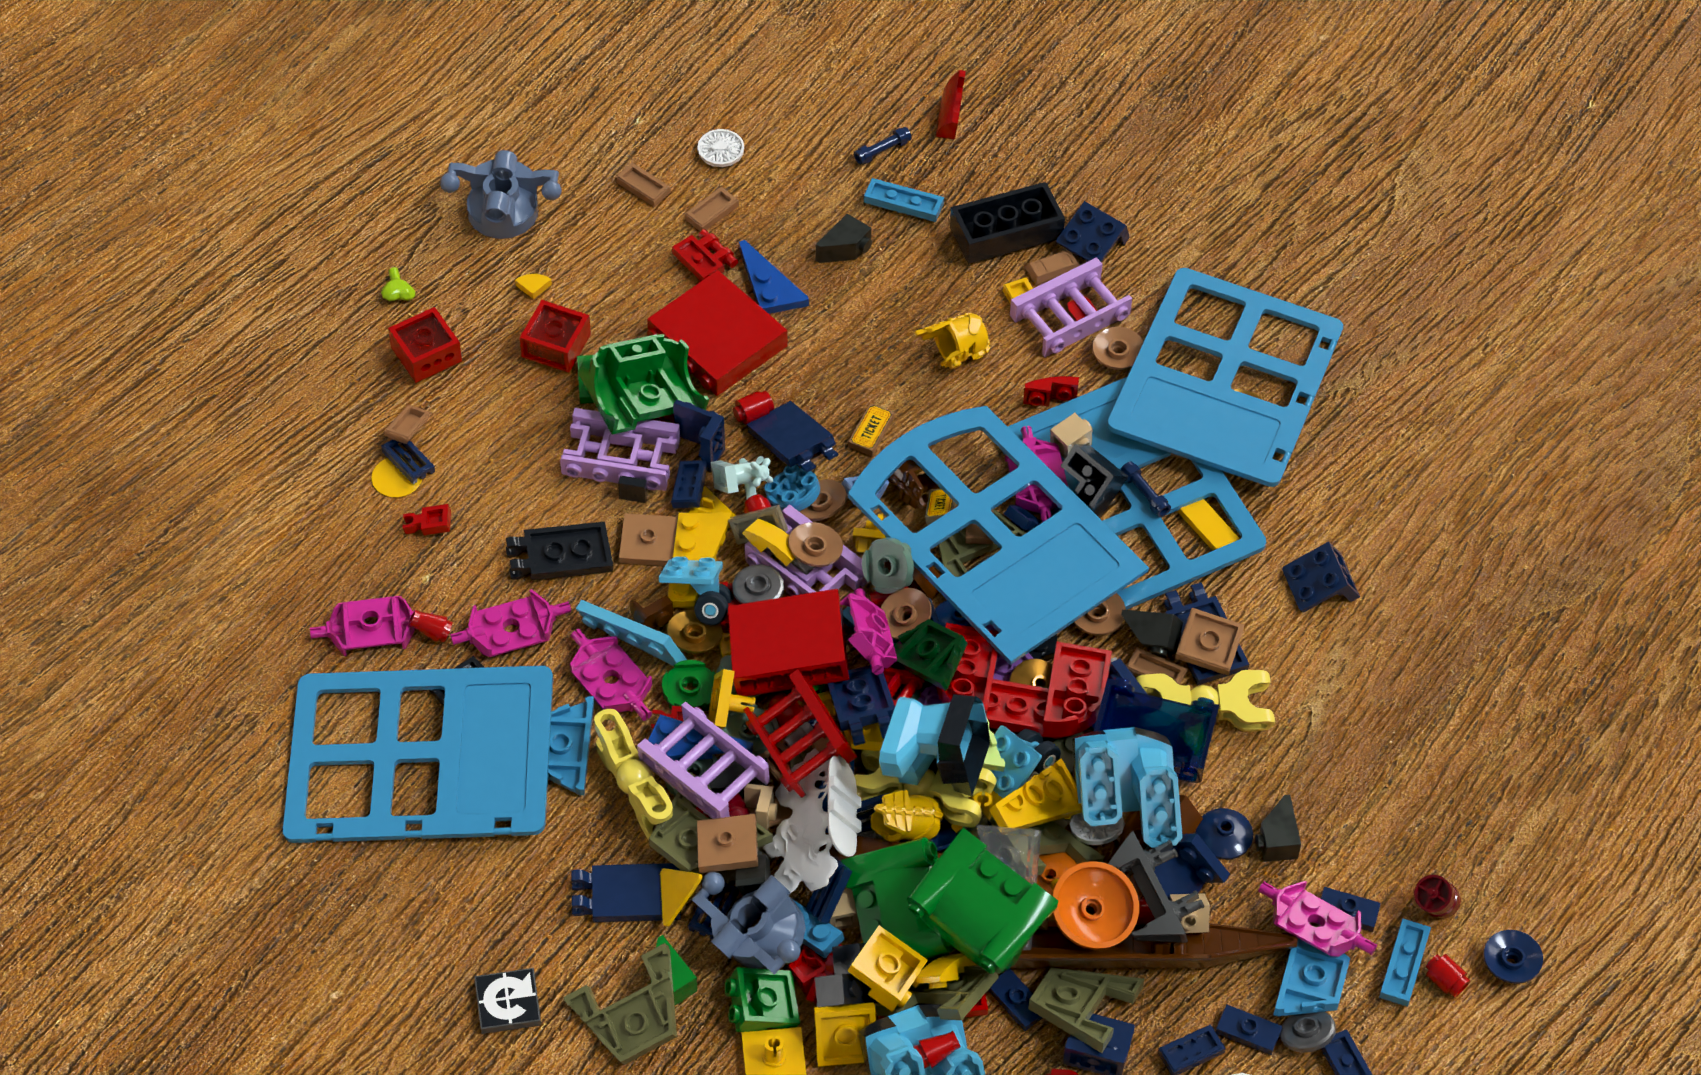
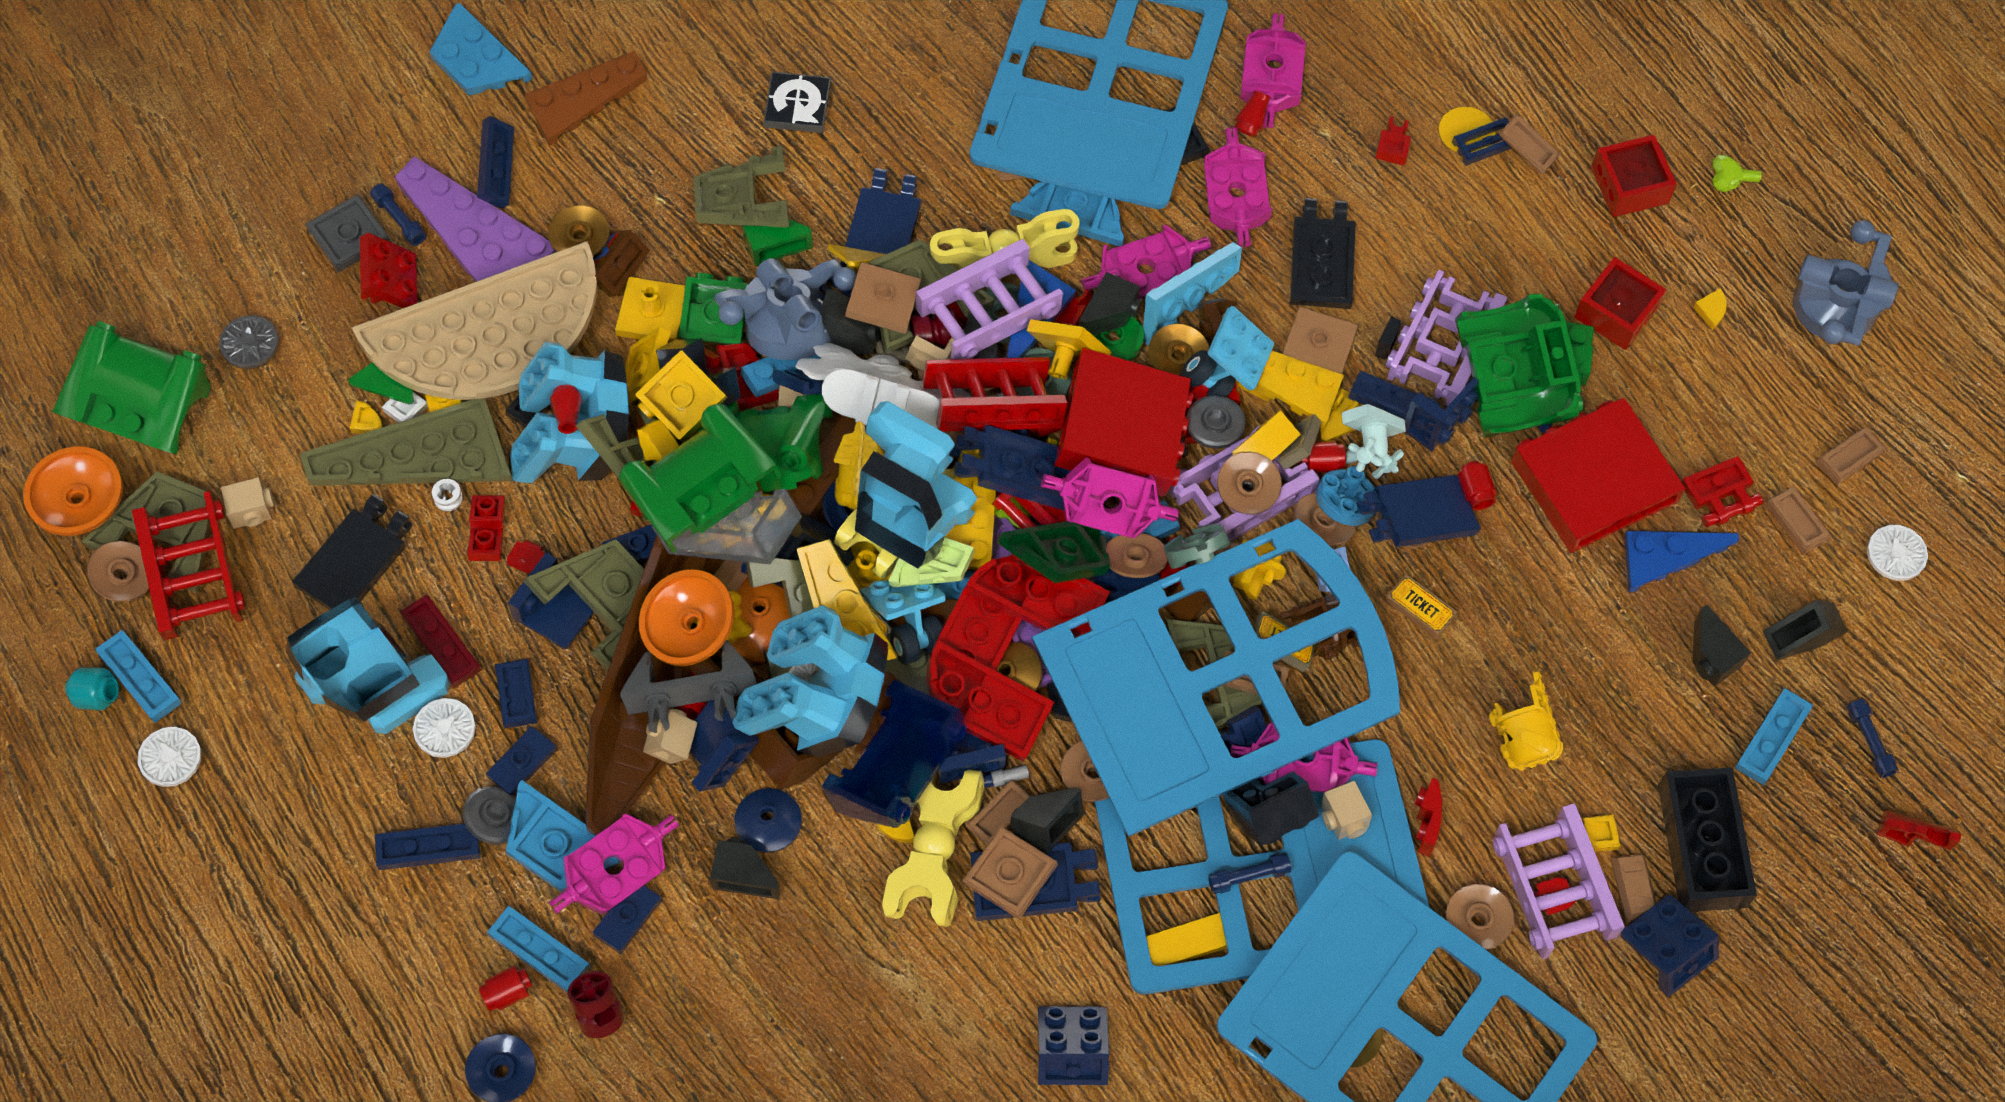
camera: 105 degrees right, 10 degrees up
(671, 683) = (1111, 305): none -> pearl dark grey slope
(810, 190) = (1805, 630): none -> pearl dark grey slope

